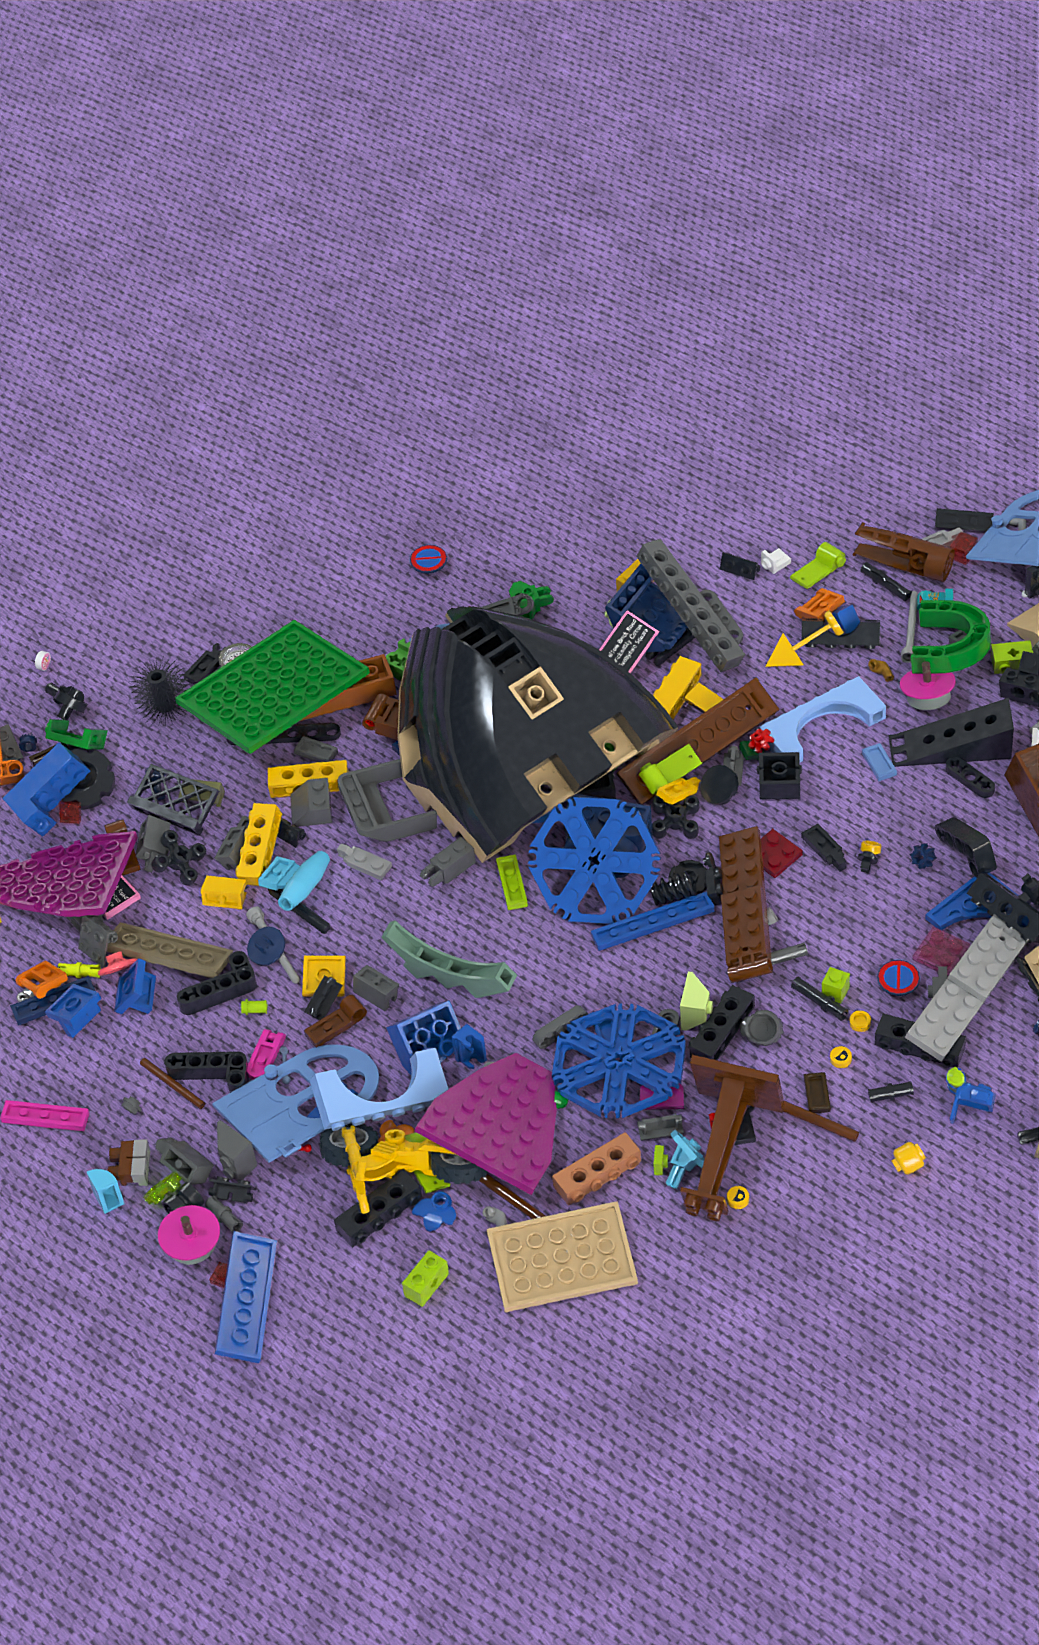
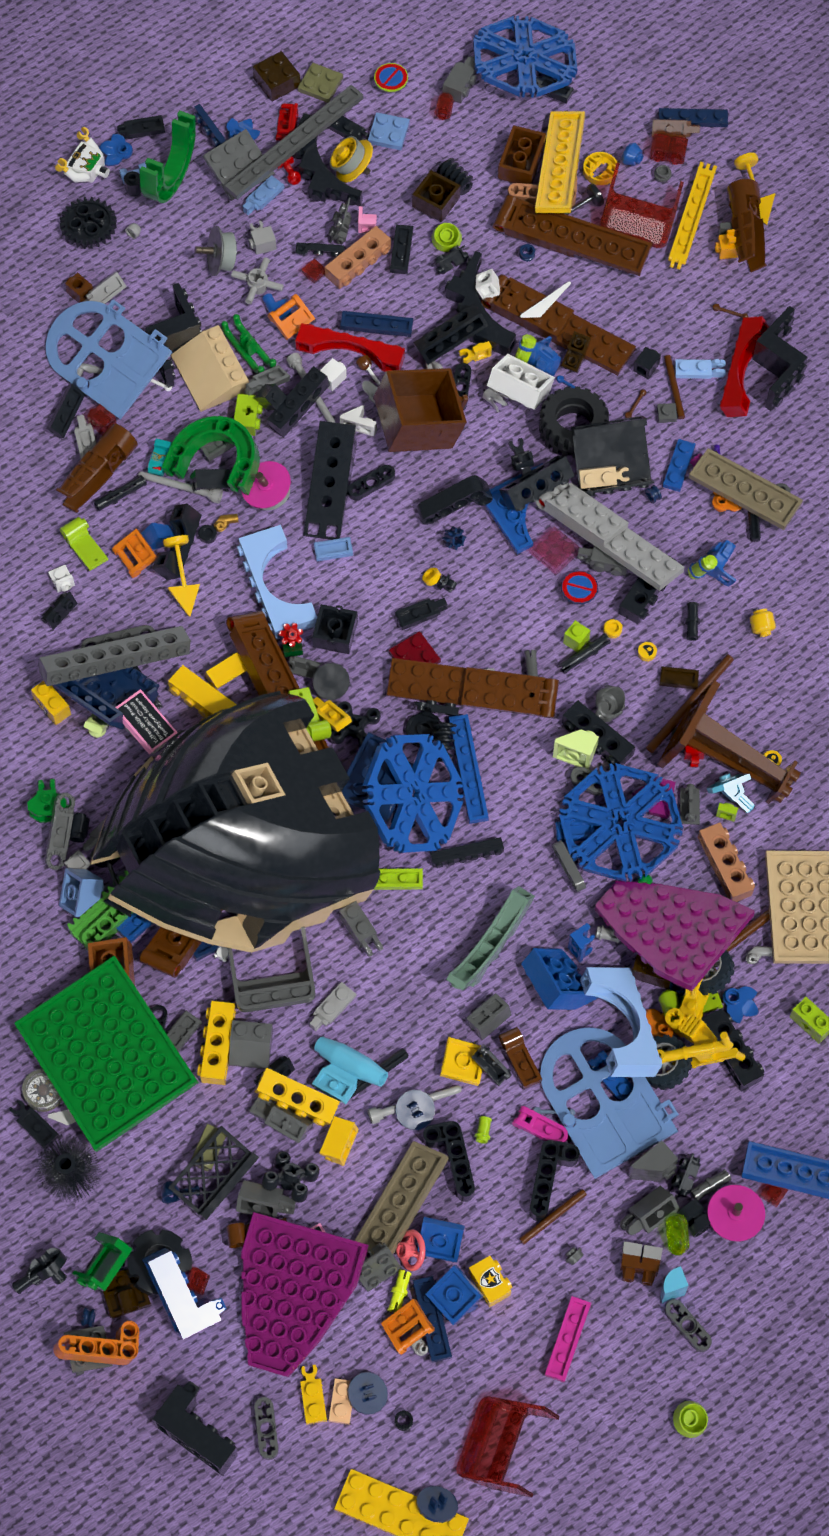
camera: 85 degrees left, 15 degrees up
(69, 1228) = (702, 1334): none -> dark grey beam
(95, 1038) = (490, 1281): none -> yellow brick
(556, 937) = (467, 852): none -> black piece
(862, 658) = (207, 534): none -> black tile
(918, 635) = (210, 479): none -> black hinge

